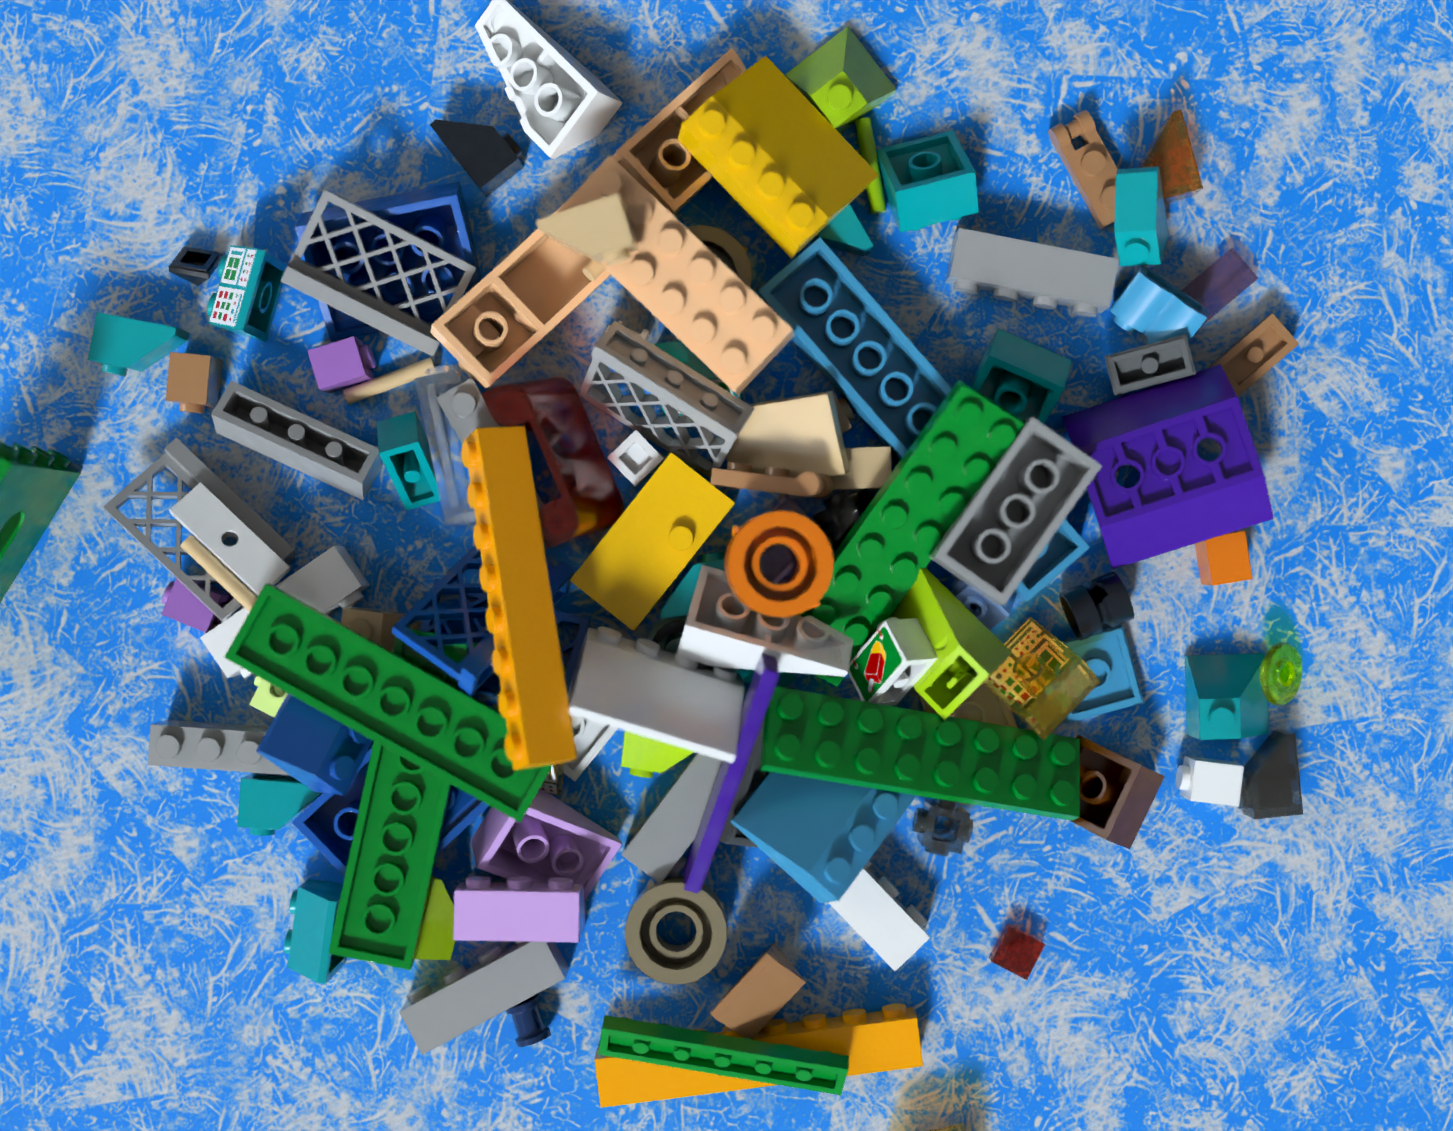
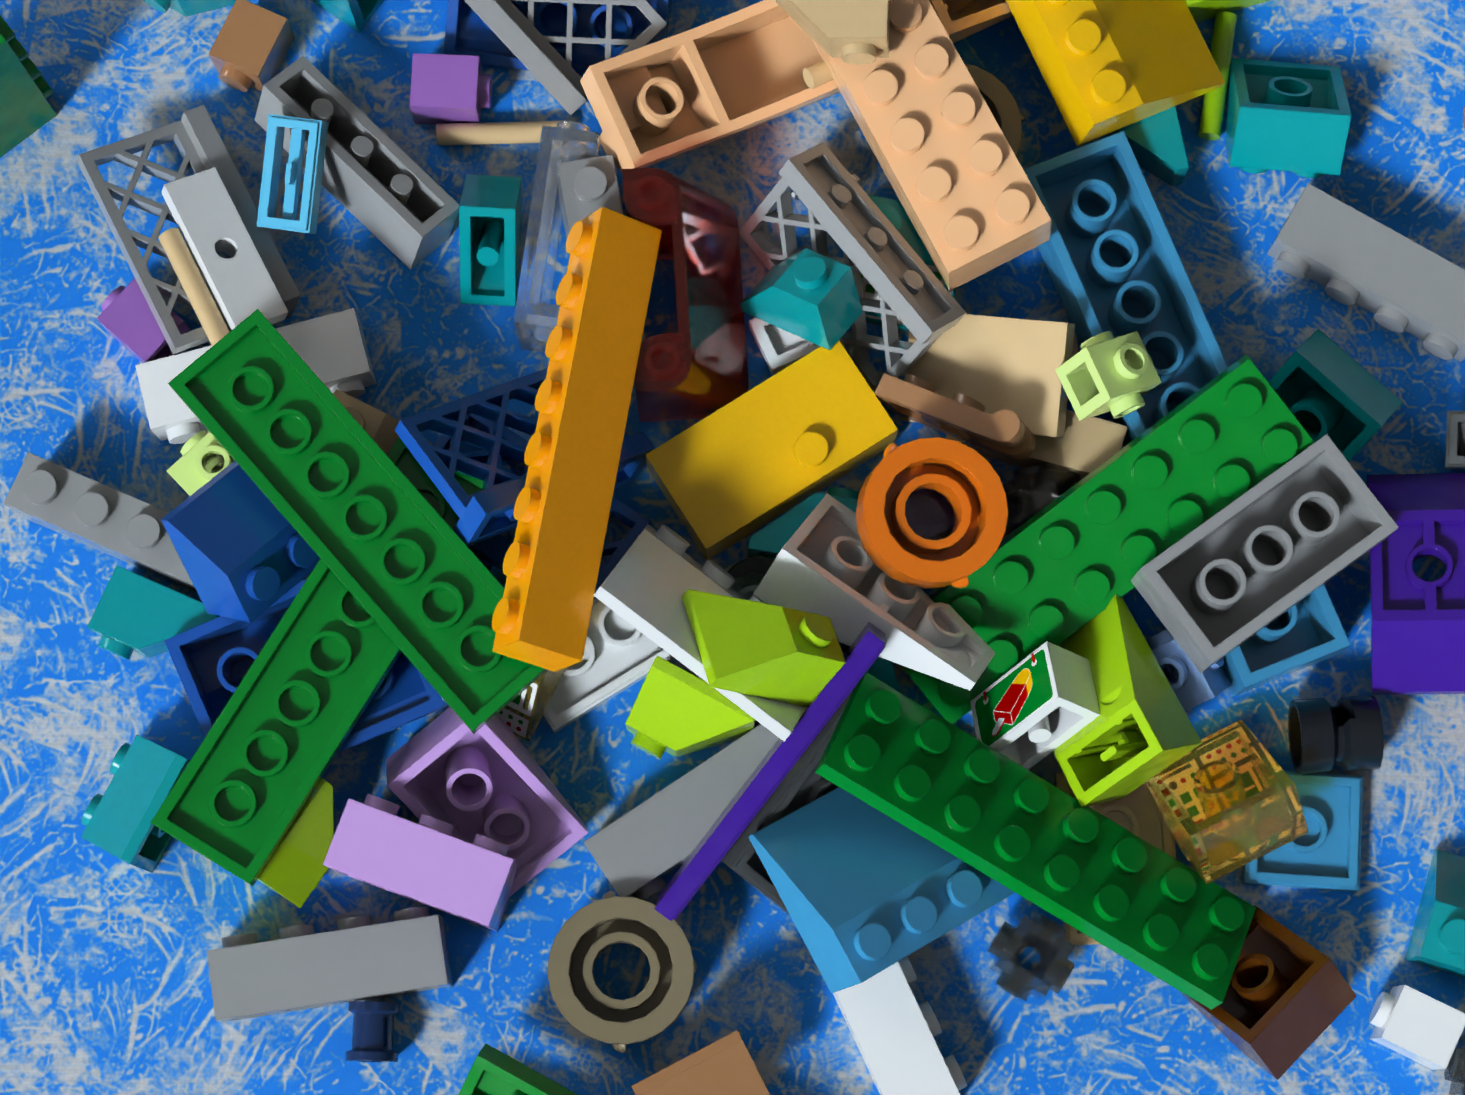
camera: 15 degrees right, 10 degrees down
(269, 465) = (312, 176): none -> medium azure tile
(641, 432) = (807, 298): none -> teal slope
(694, 700) = (763, 647): none -> lime slope
(868, 422) = (1118, 369): none -> yellowish green brick

